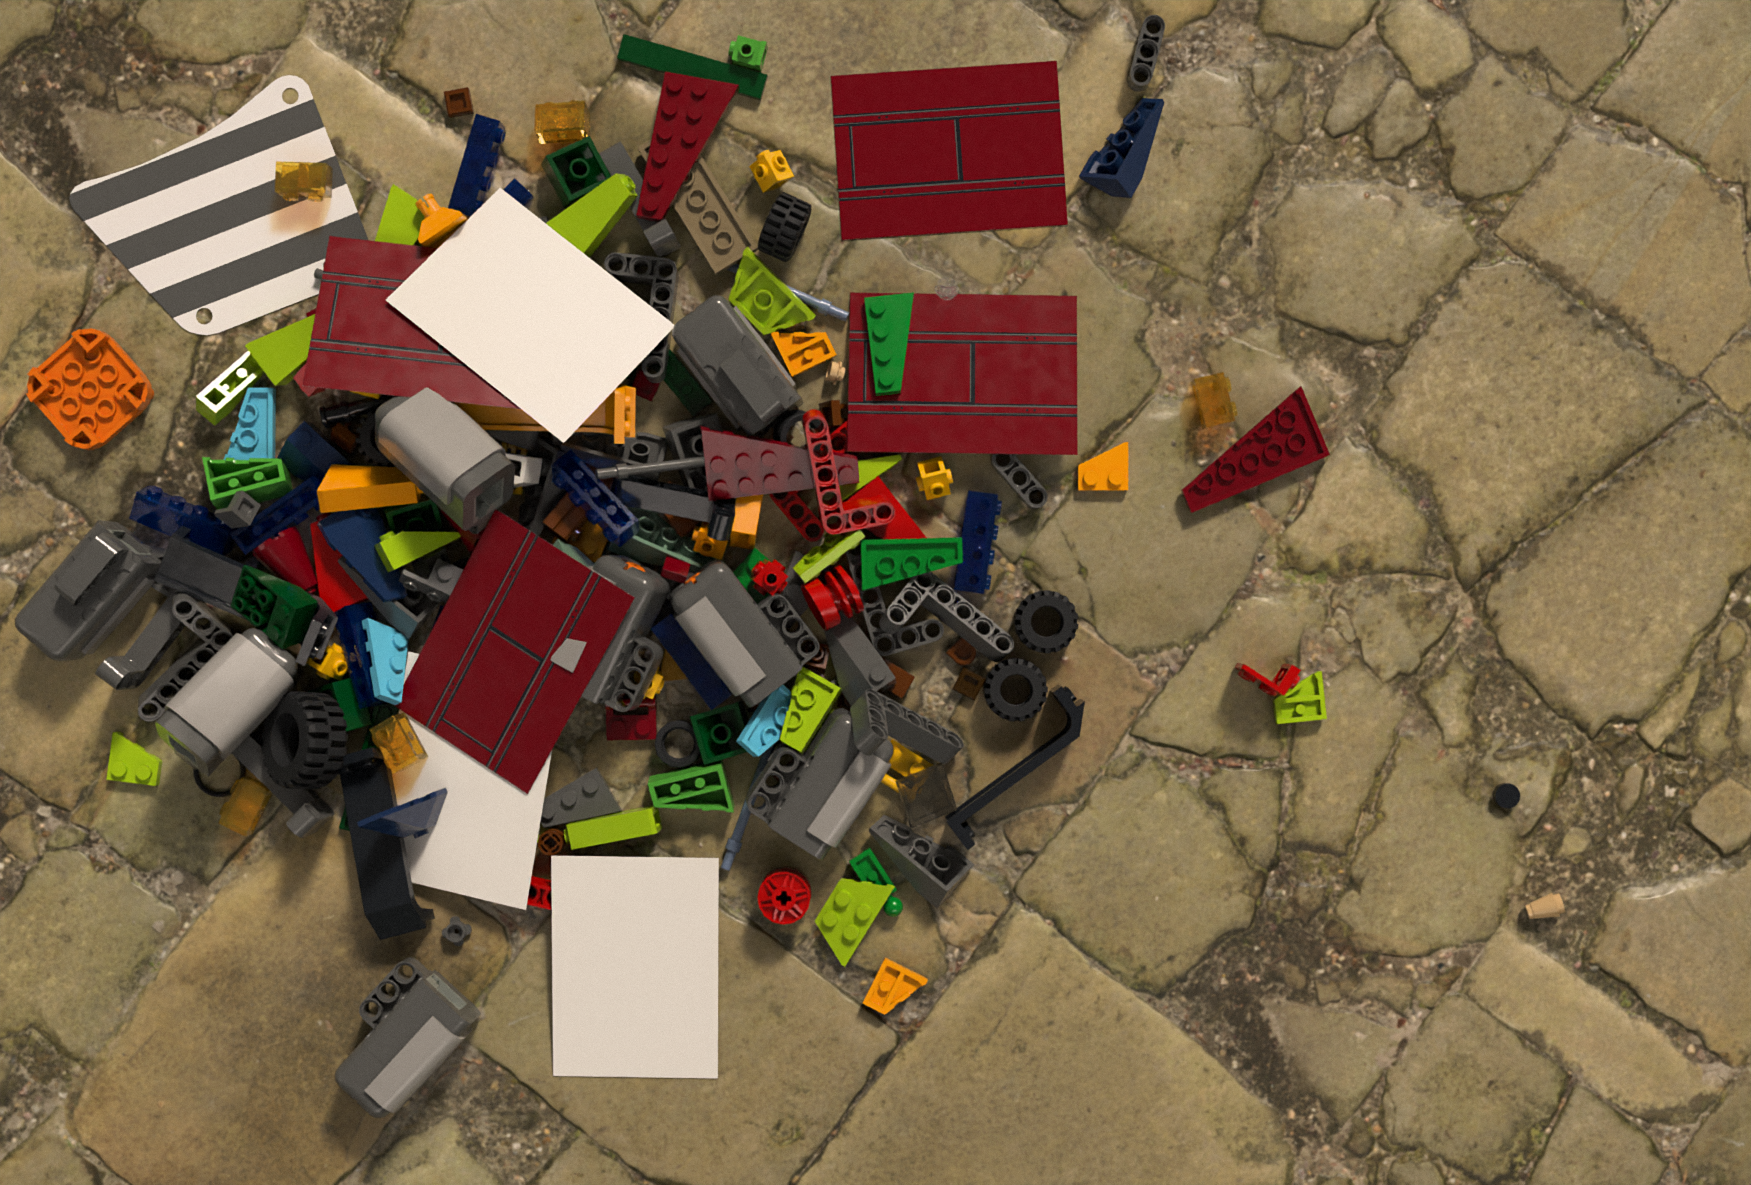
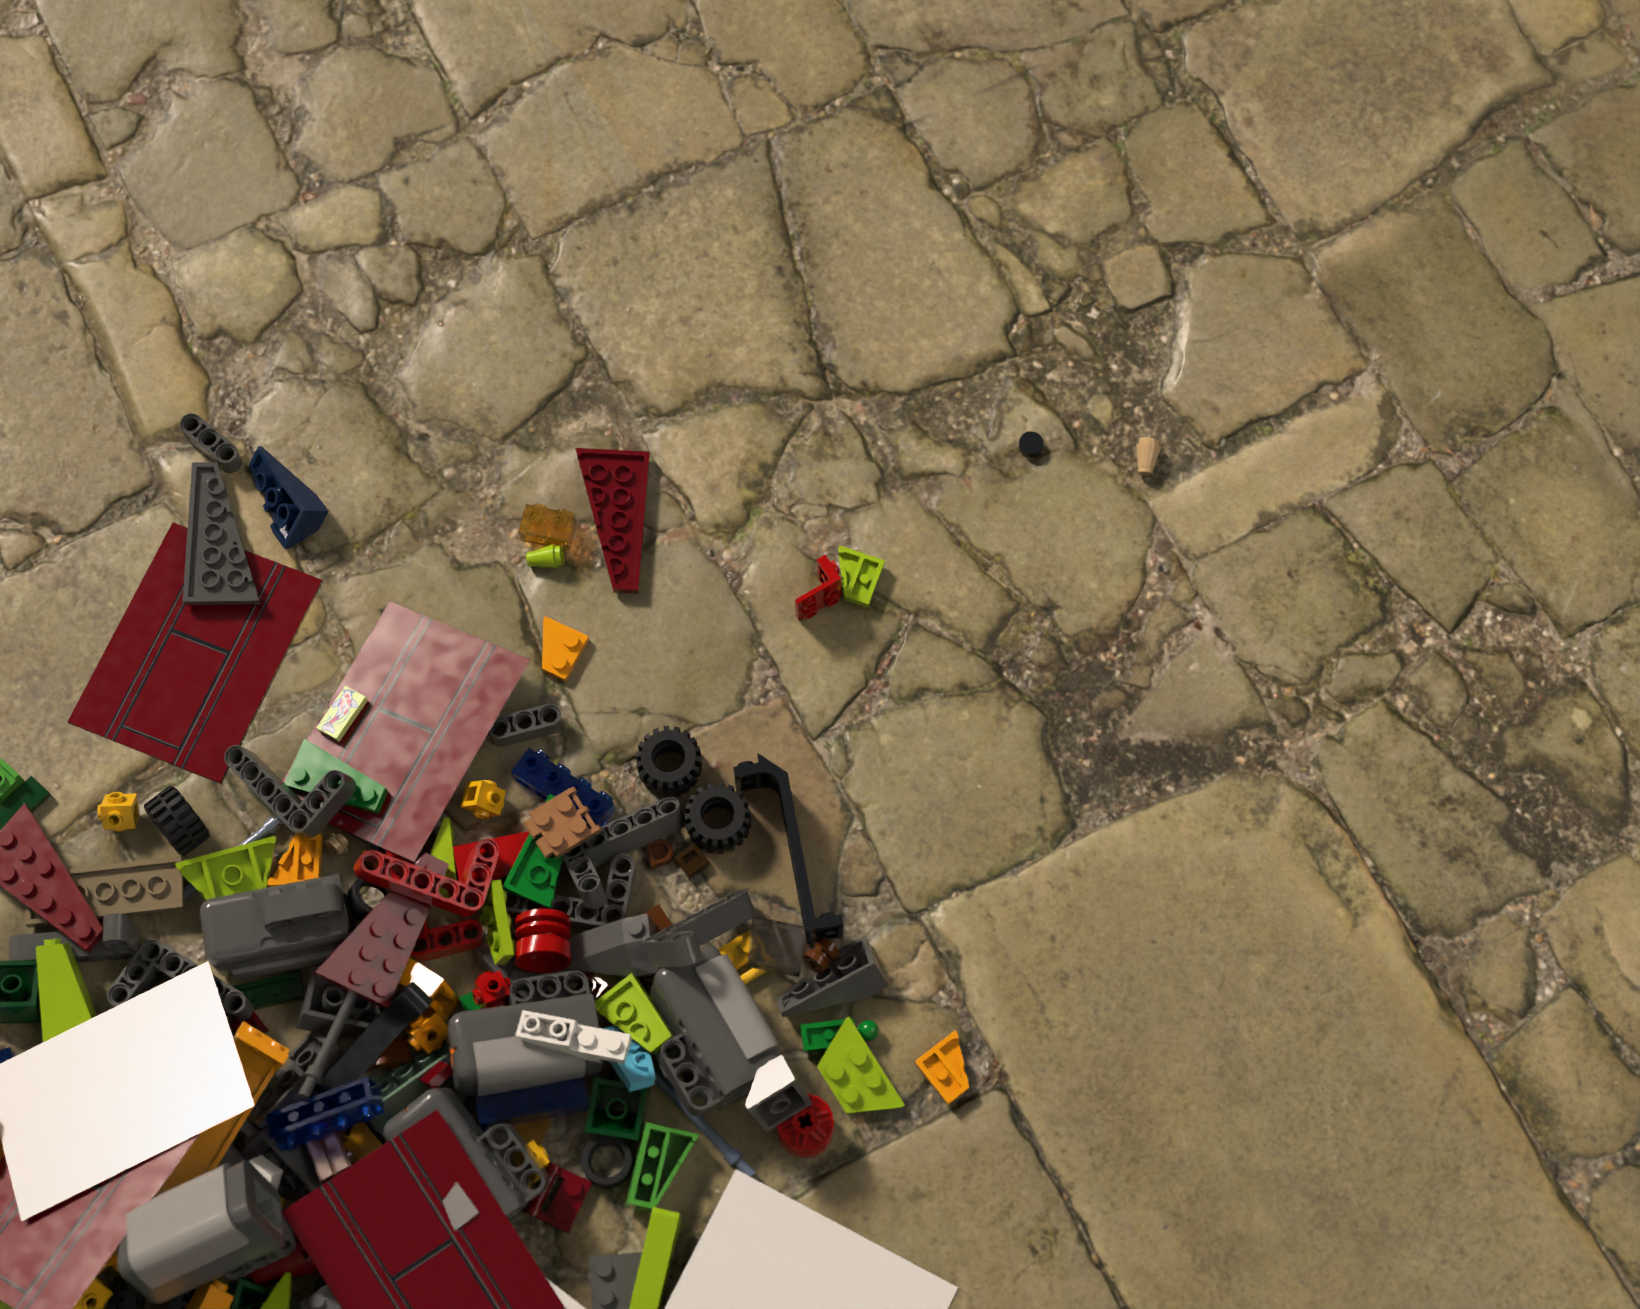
camera: 70 degrees left, 20 degrees down
(753, 685) = (572, 1038): none -> white slope
(791, 868) = (776, 1094): none -> dark grey slope
(853, 305) = (300, 810): none -> dark grey beam
(937, 837) = (819, 957): none -> reddish brown wheel
(938, 562) = (561, 824): none -> medium nougat plate
(952, 313) = (342, 714): none -> tile
(1042, 118) = (215, 555): none -> dark grey wing
(1184, 414) = (549, 557): none -> lime cone

